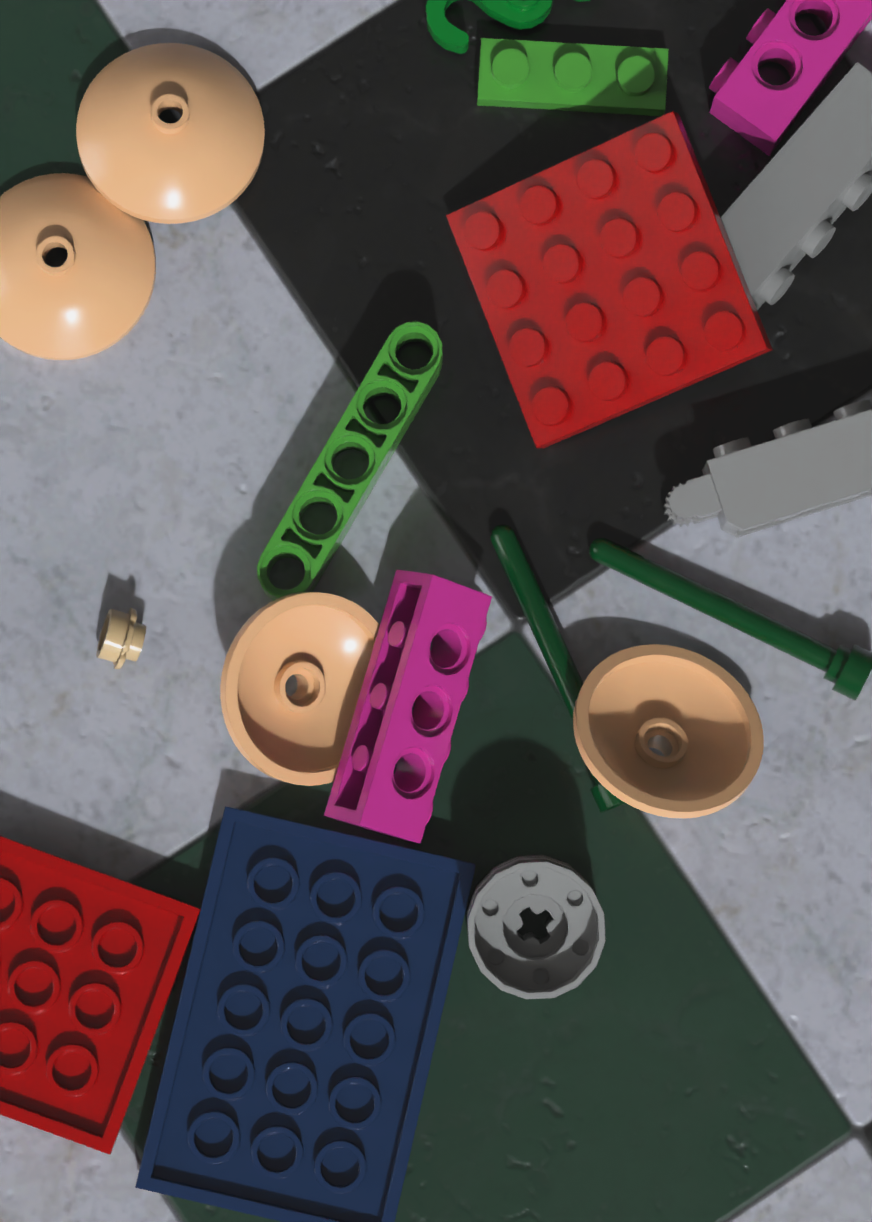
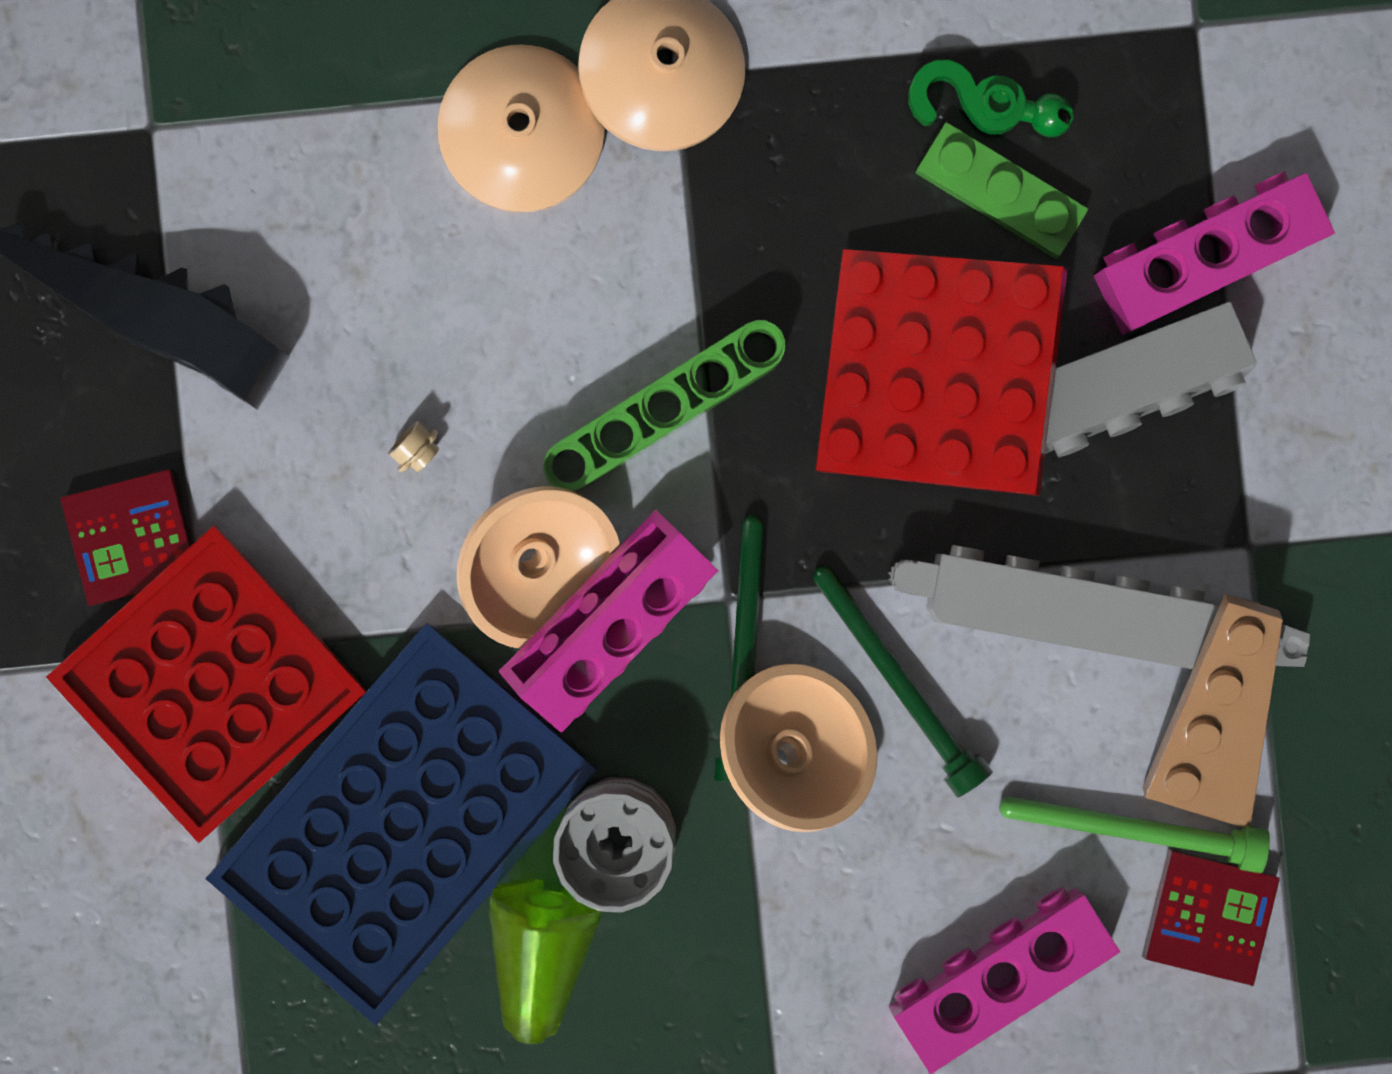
camera: 25 degrees right, 5 degrees up
(517, 1083) = (538, 954): none -> clear neon green cone

